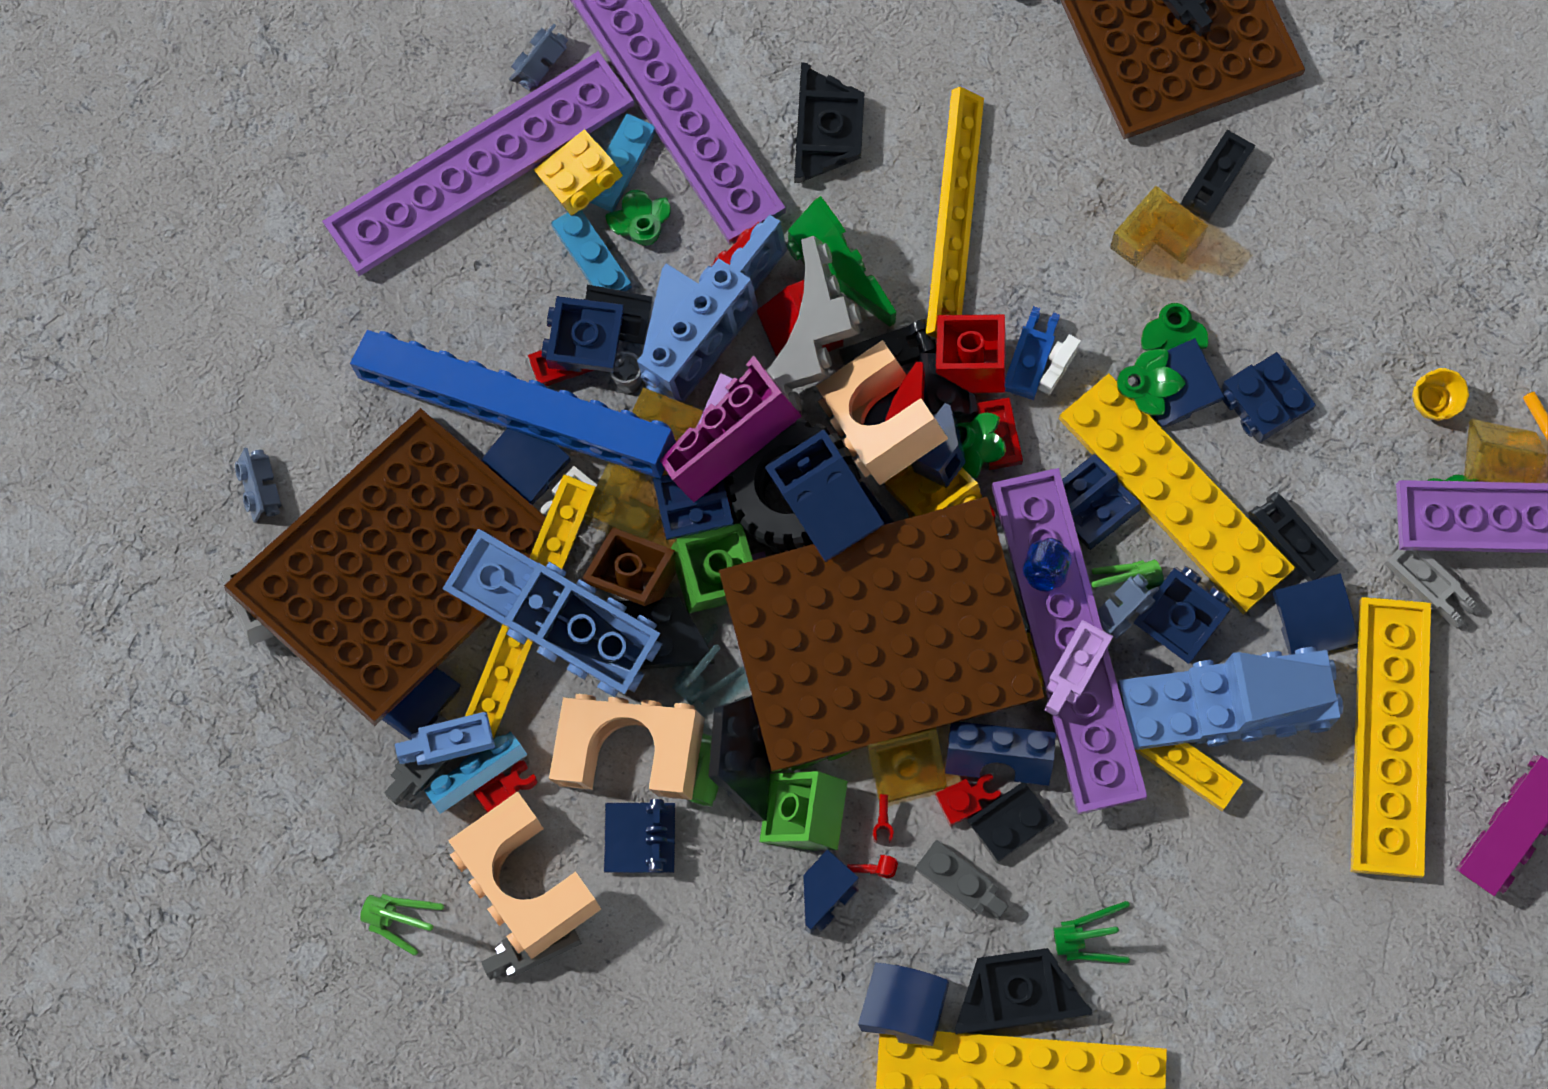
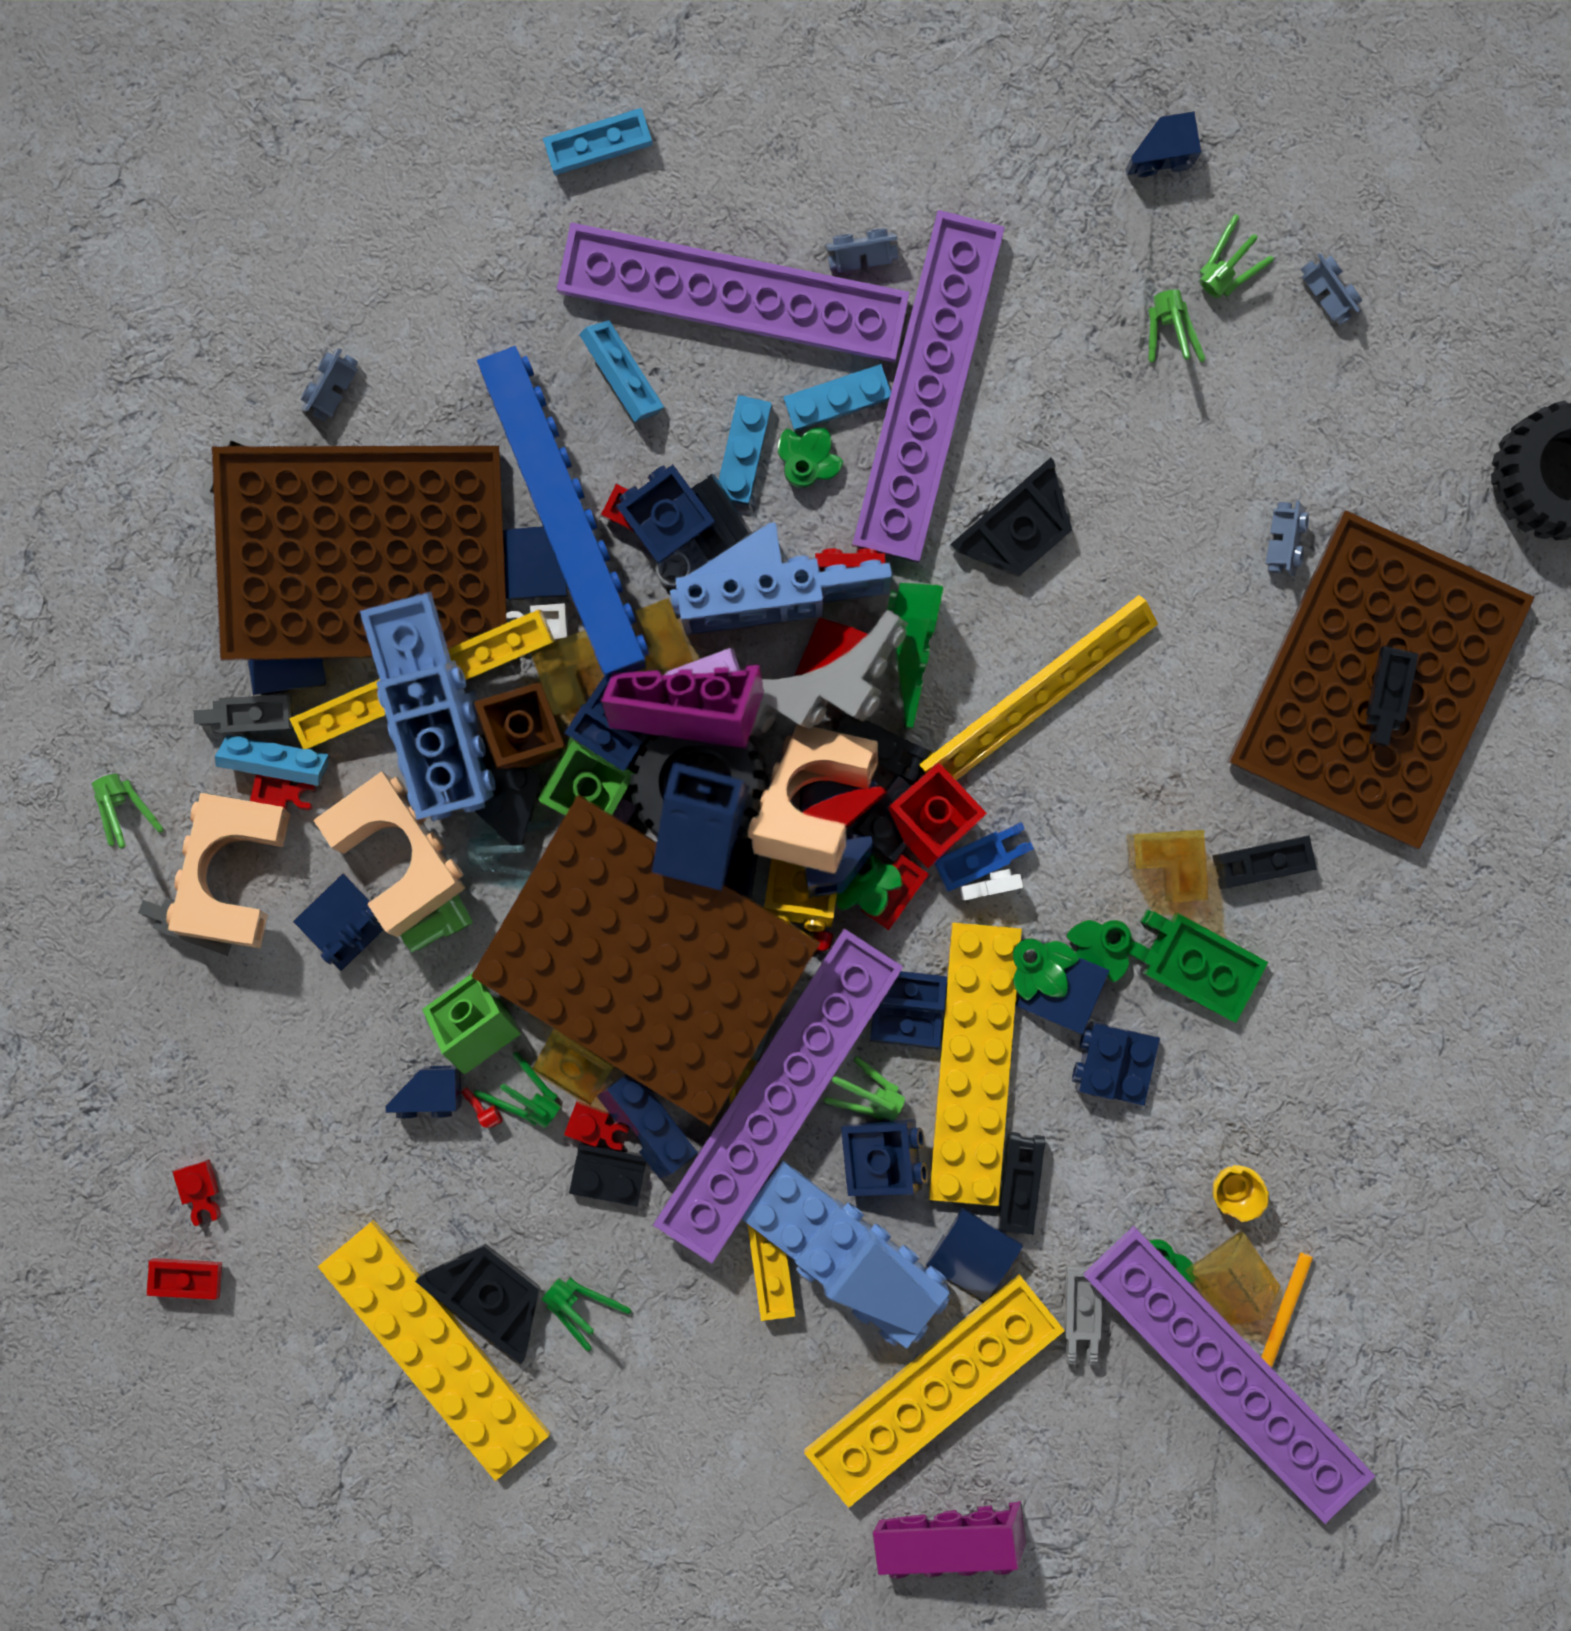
camera: 45 degrees right, 15 degrees up
(287, 156) = (598, 141): none -> dark azure plate
(447, 740) = (270, 721): medium blue hinge -> none
(455, 282) = (621, 371): none -> dark azure plate
(578, 172) = (794, 376): yellow plate -> none
(740, 756) = (462, 938): black wing -> none
(883, 819) = (521, 1082): red hand -> none
(903, 1004) = (400, 1226): dark blue slope -> none
(914, 820) = (537, 1110): none -> green plant
(960, 880) = (531, 1179): dark grey hinge -> none
(1047, 564) = (814, 1032): clear blue head -> none
(1076, 666) = (757, 1125): lavender hinge -> none
(1134, 598) = (855, 1116): sand blue hinge -> none
(1248, 280) = (1199, 964): none -> green tile

